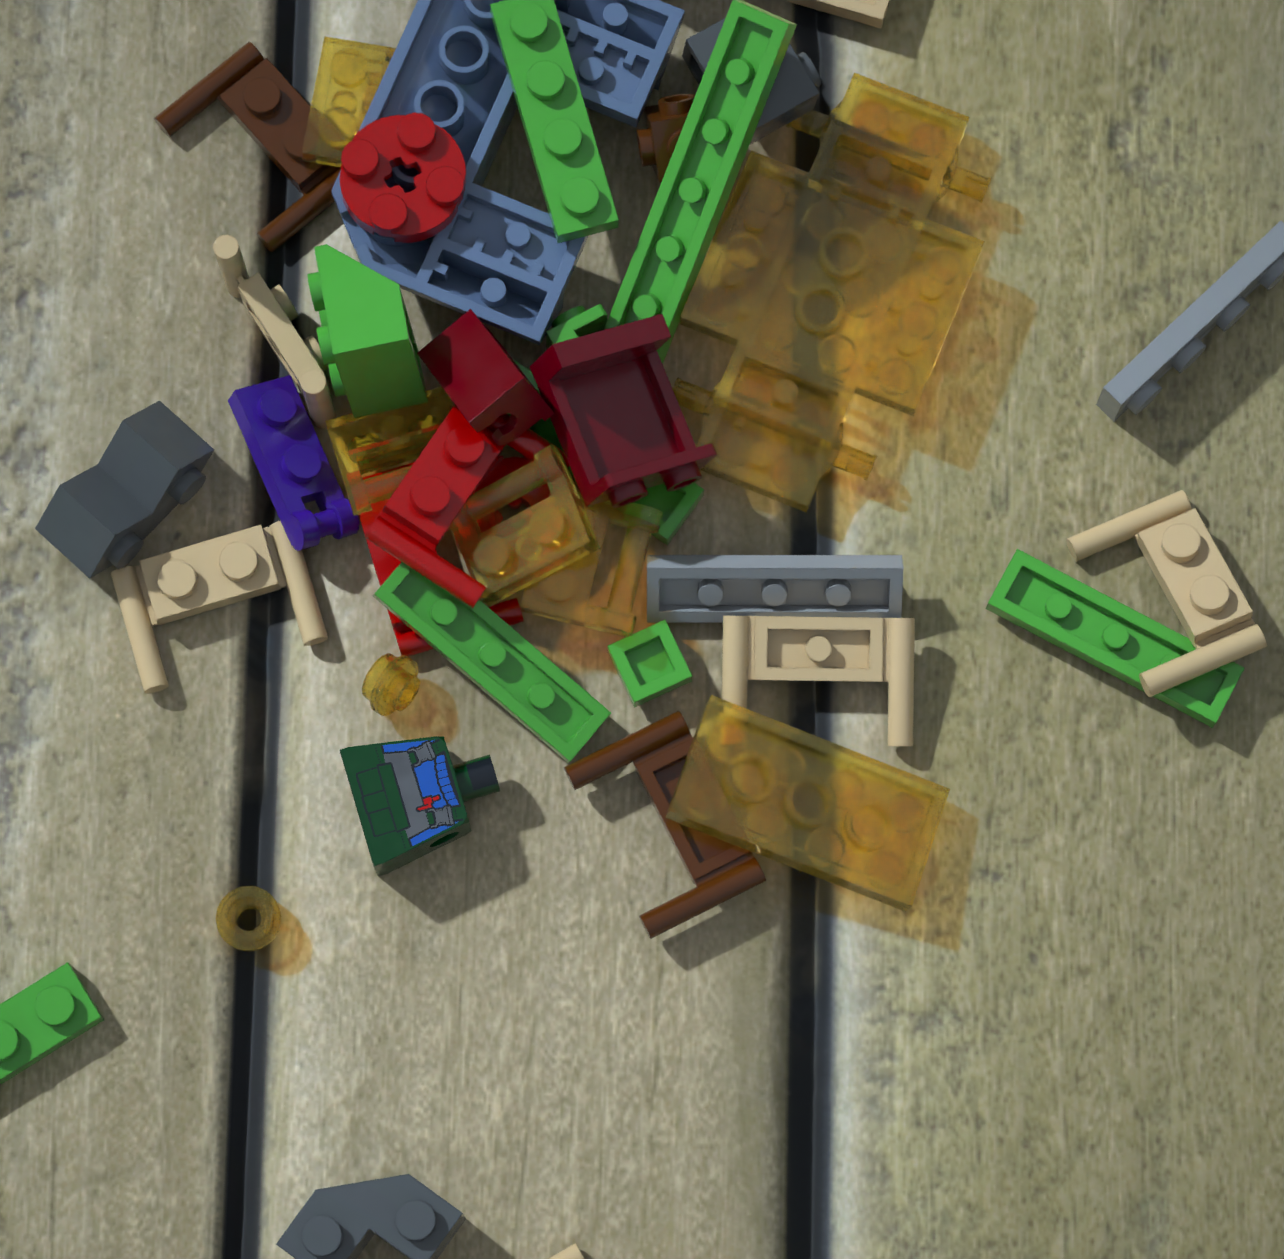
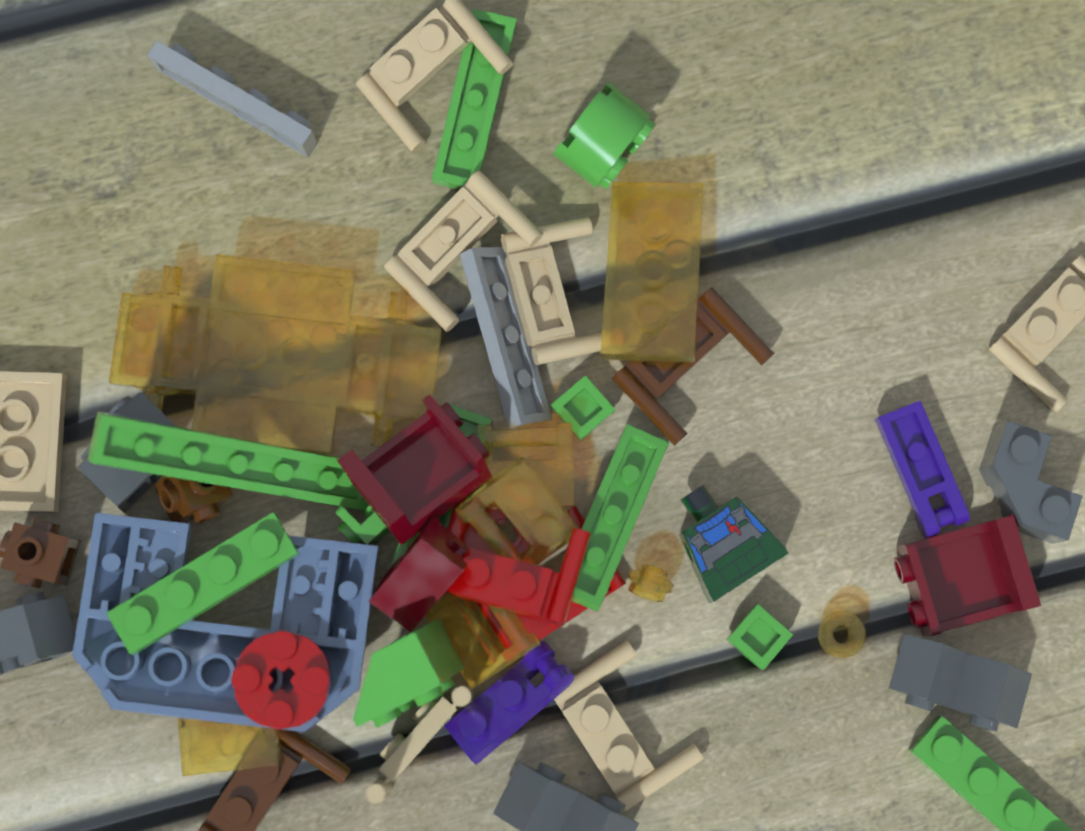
camera: 110 degrees left, 5 degrees up
(120, 1072) = (960, 681): none -> dark grey brick
(274, 1103) = (966, 576): none -> dark red panel
(278, 806) = (759, 637): none -> bright green plate
(437, 1093) = (922, 468): none -> dark purple plate
(932, 555) = (448, 235): none -> tan plate
(1012, 786) = (602, 135): none -> bright green brick

